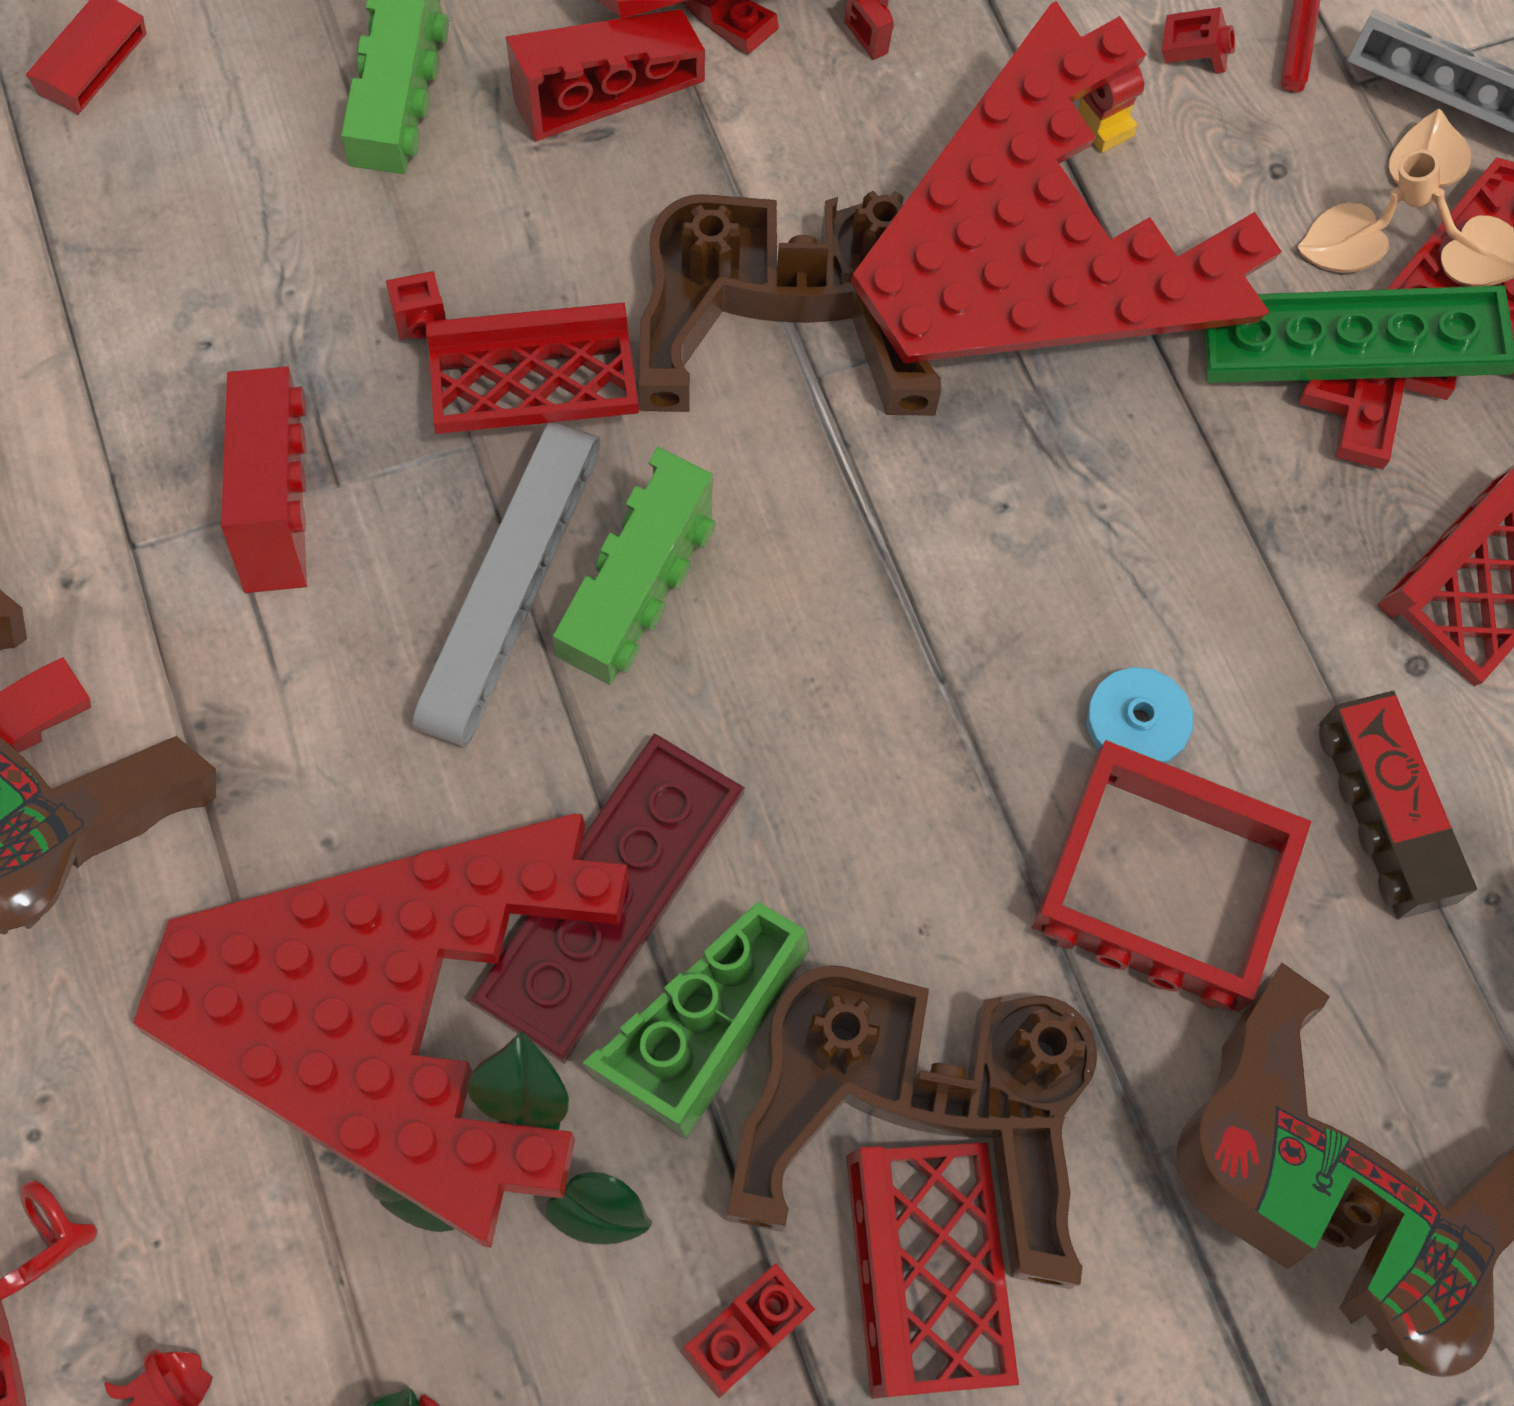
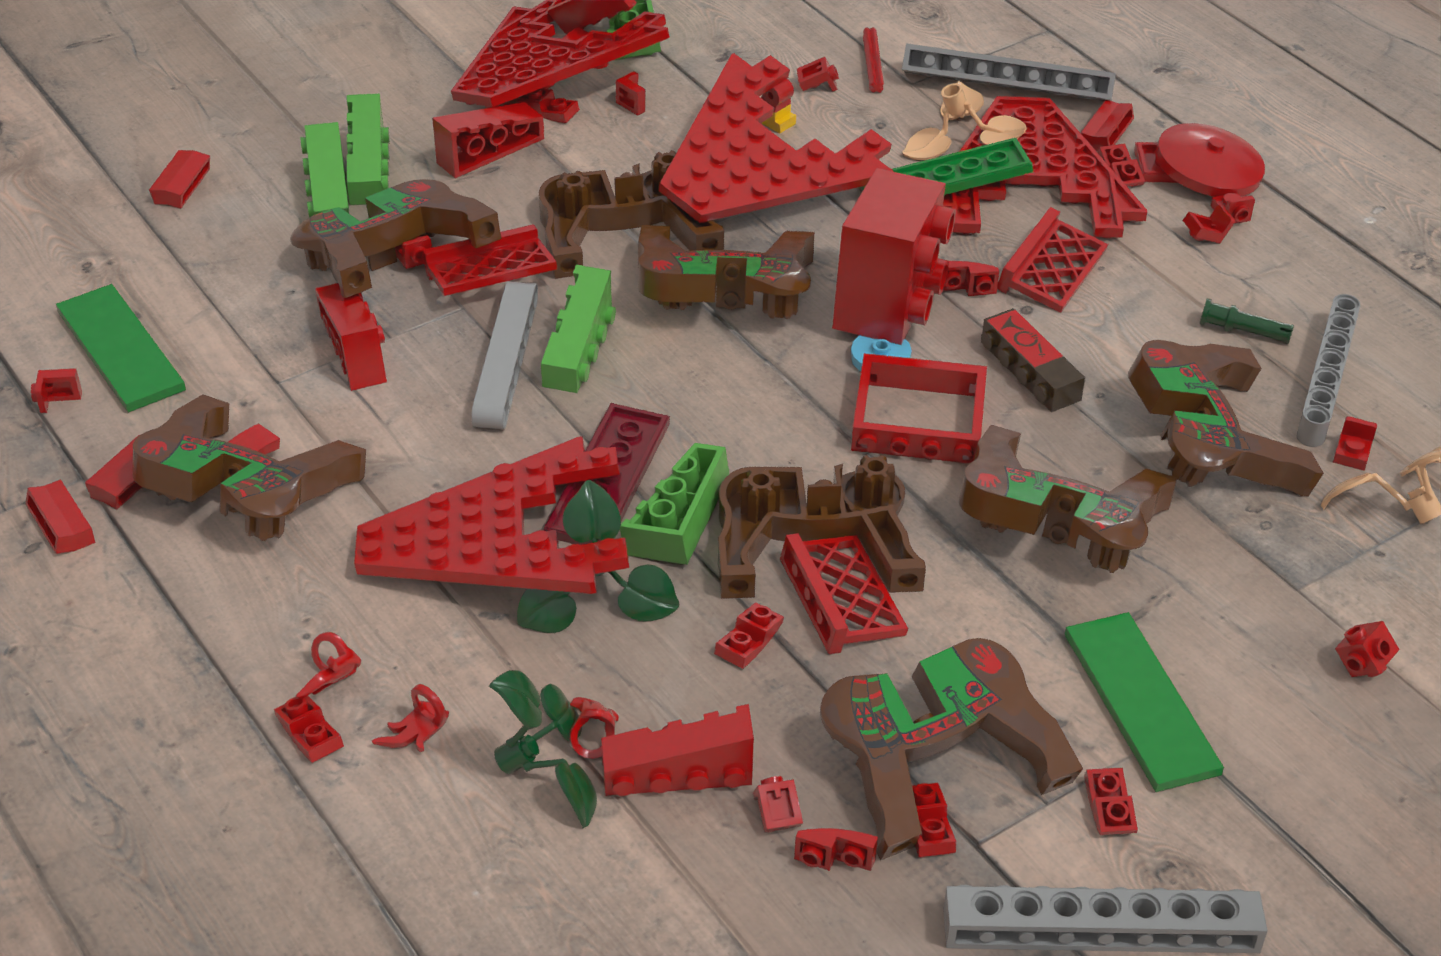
camera: 10 degrees left, 25 degrees down
(313, 101) = (325, 168): none -> bright green wedge
(418, 231) = (395, 216): none -> reddish brown animal
(843, 497) = (685, 277): none -> reddish brown animal
(1214, 555) = (891, 256): none -> red brick
(1344, 583) = (972, 276): none -> red slope

